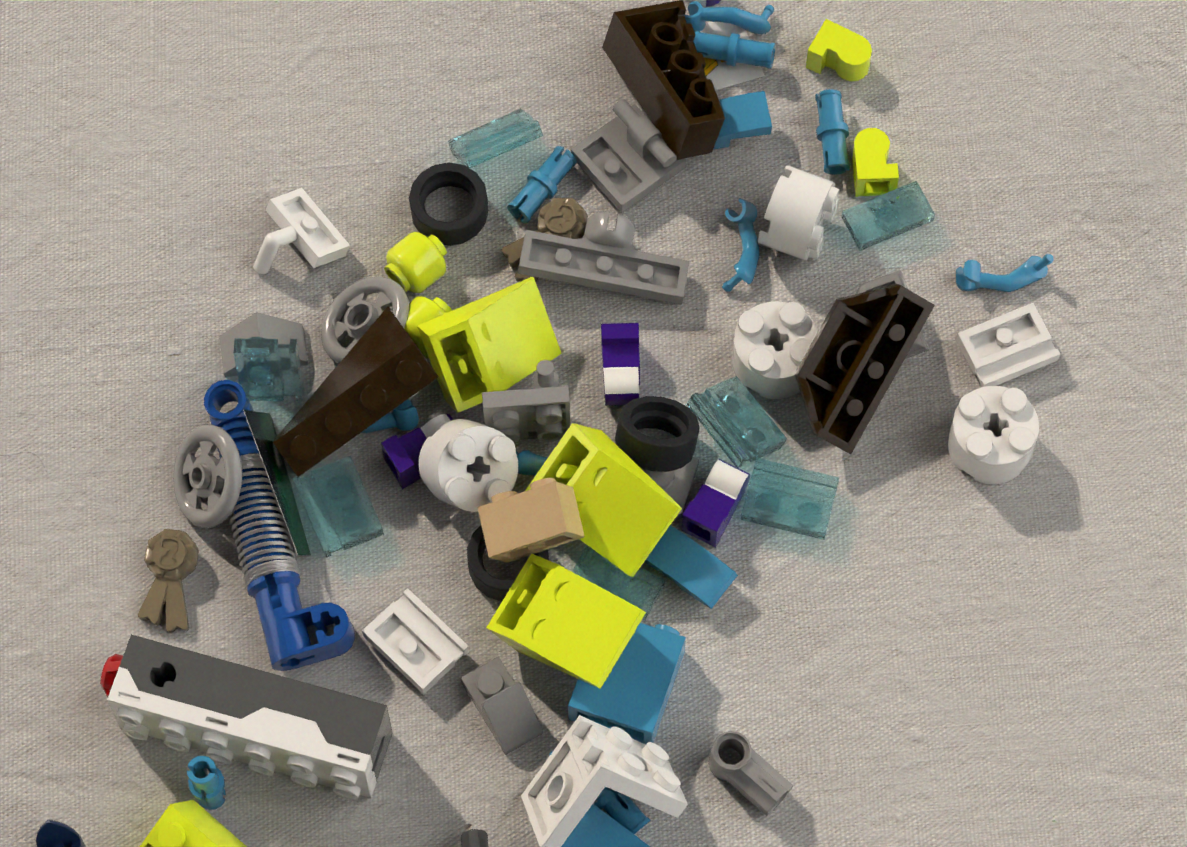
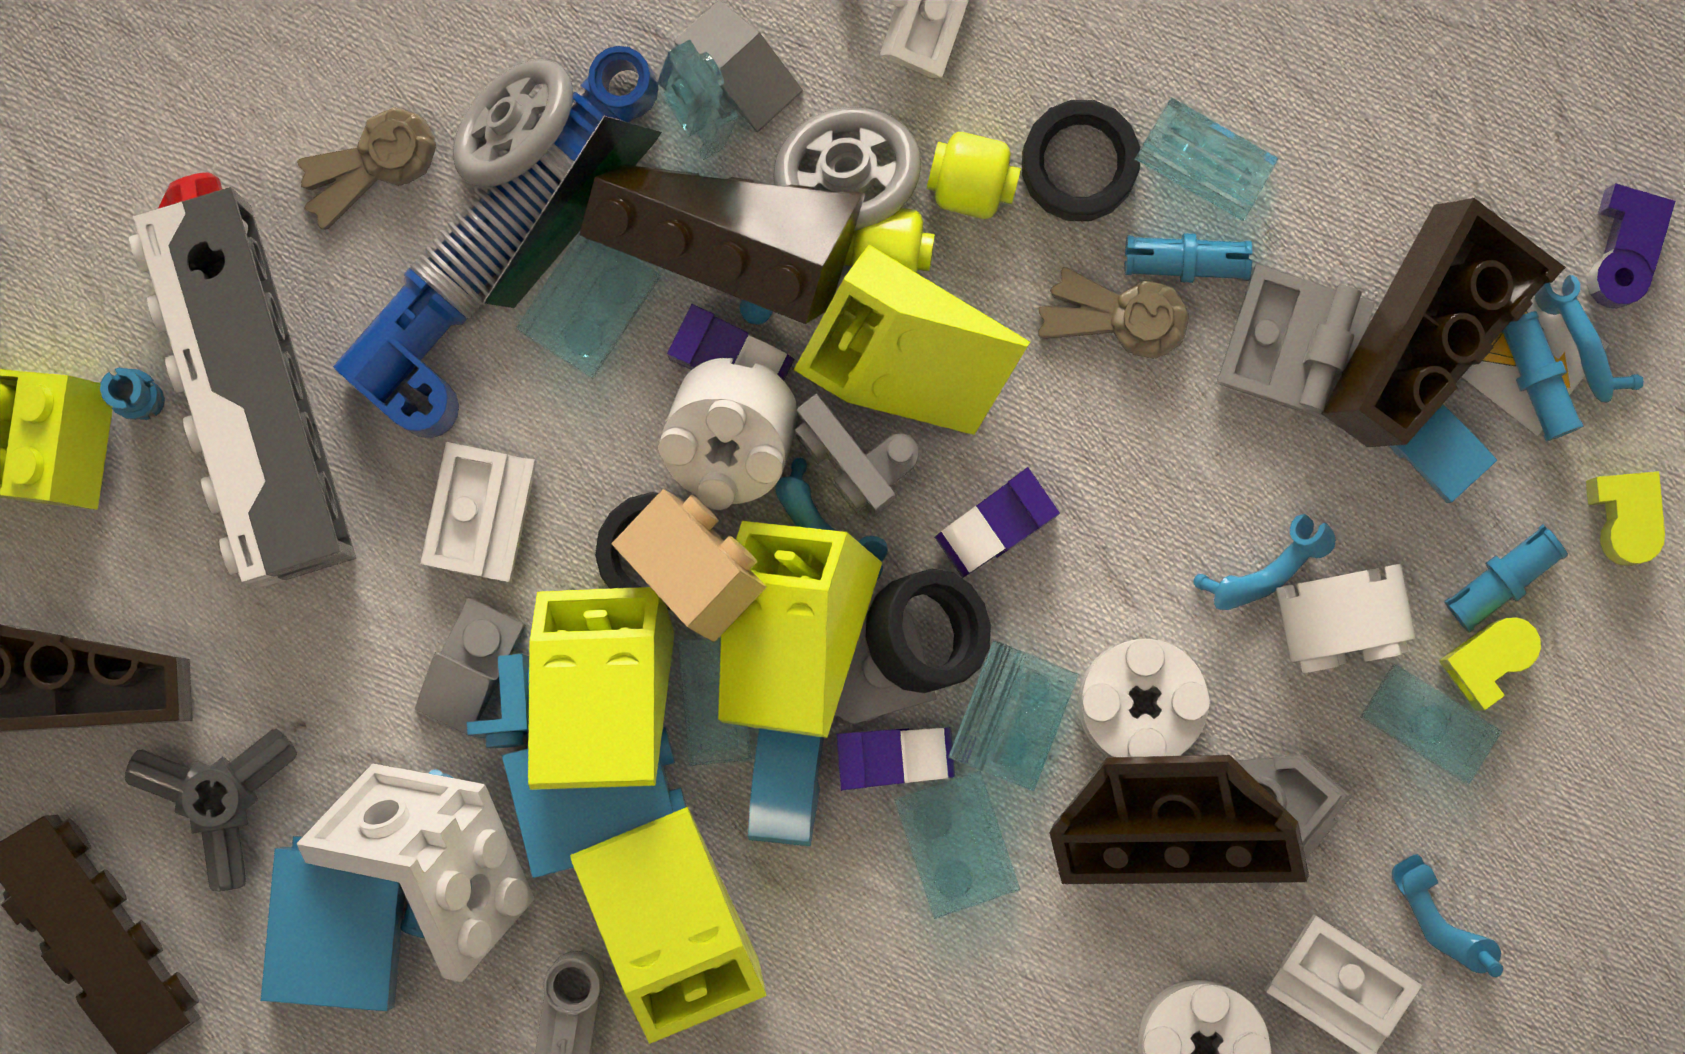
camera: 55 degrees right, 20 degrees up
(540, 679) = (514, 706): none -> dark azure bracket
(604, 261) = (1125, 410): light grey plate -> none
(732, 671) = (669, 925): none -> neon yellow slope

